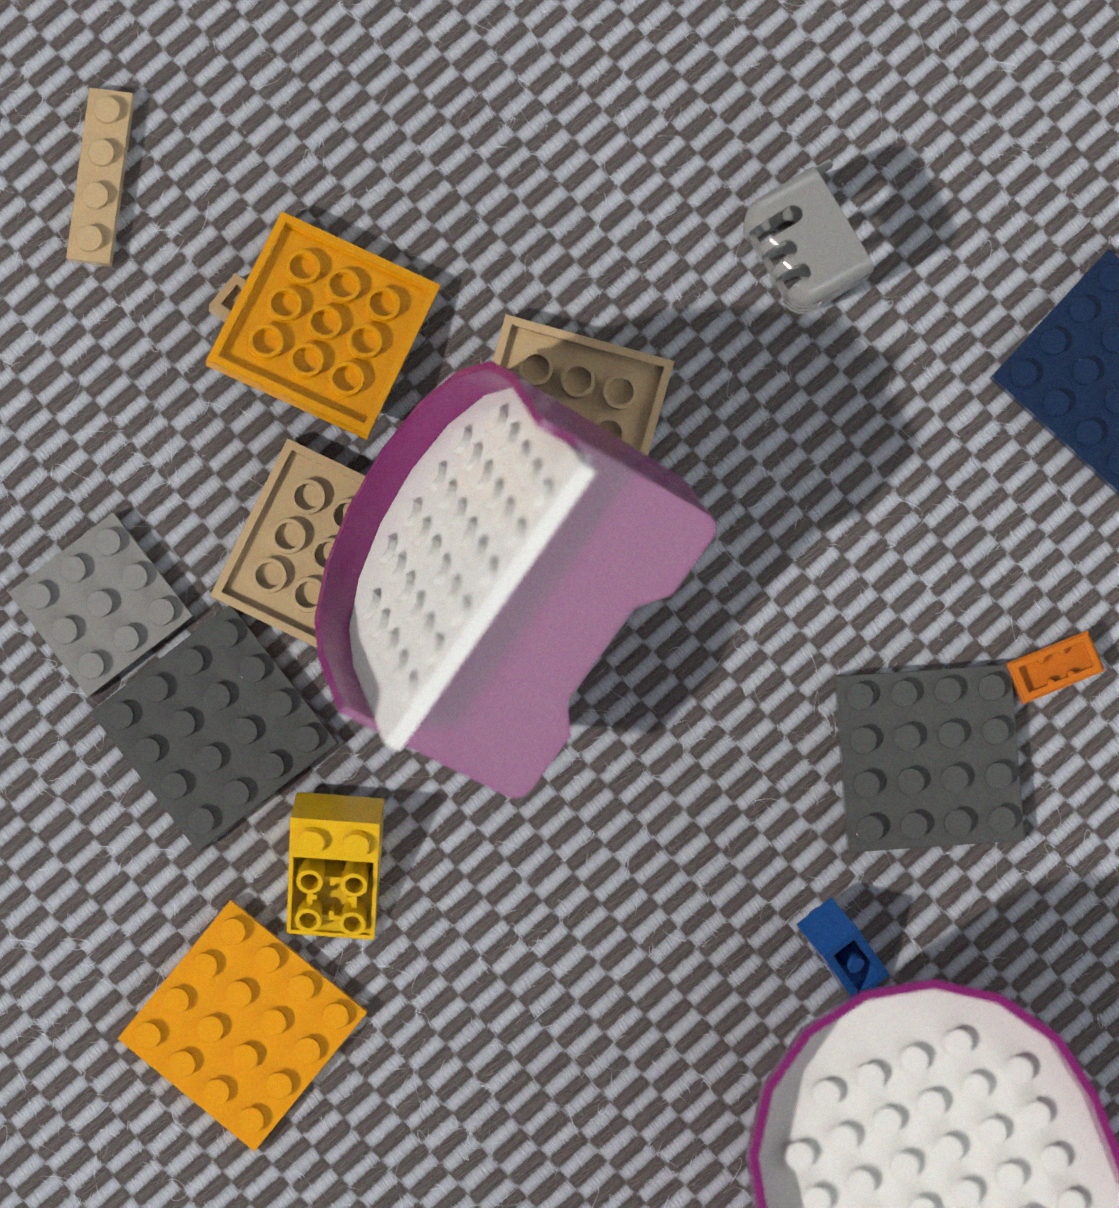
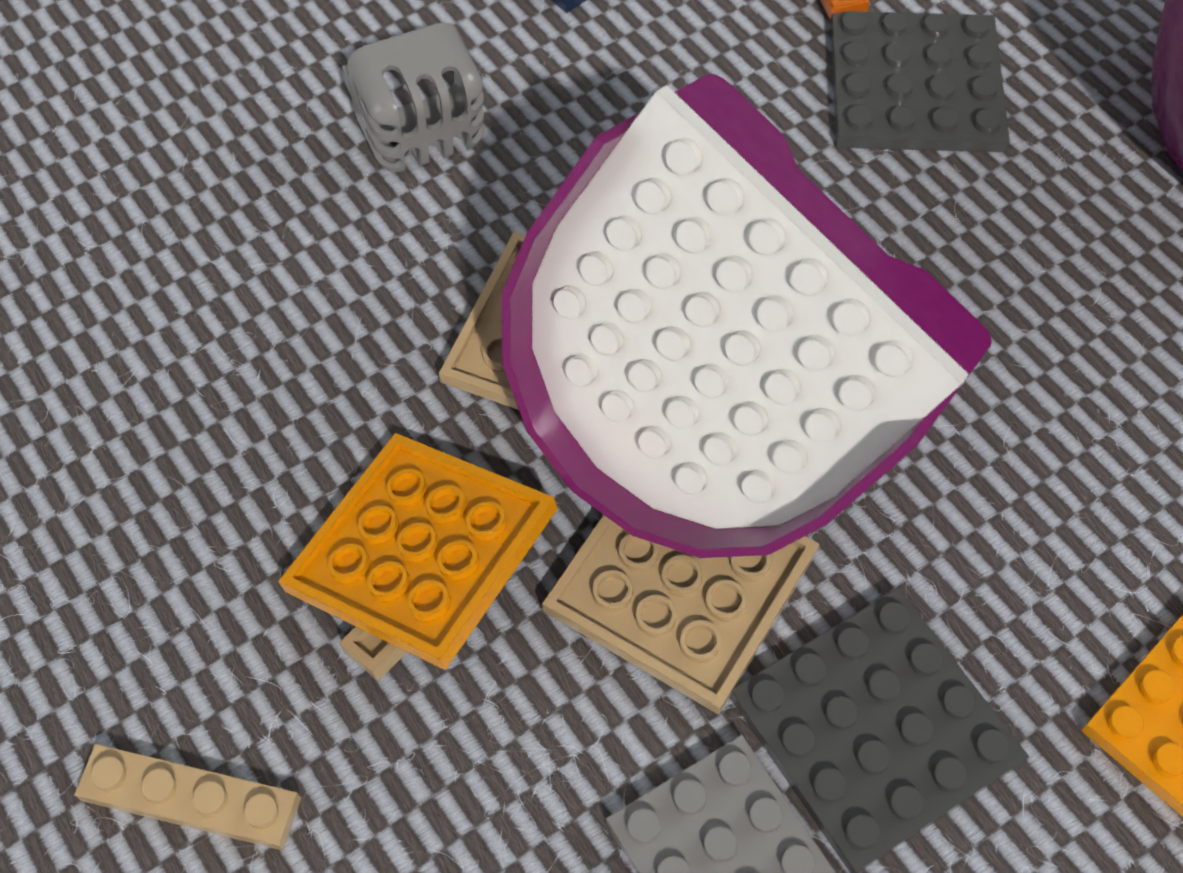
camera: 80 degrees left, 25 degrees down
(334, 865) = (1038, 601): yellow slope -> none
(842, 947) = (1101, 151): blue slope -> none

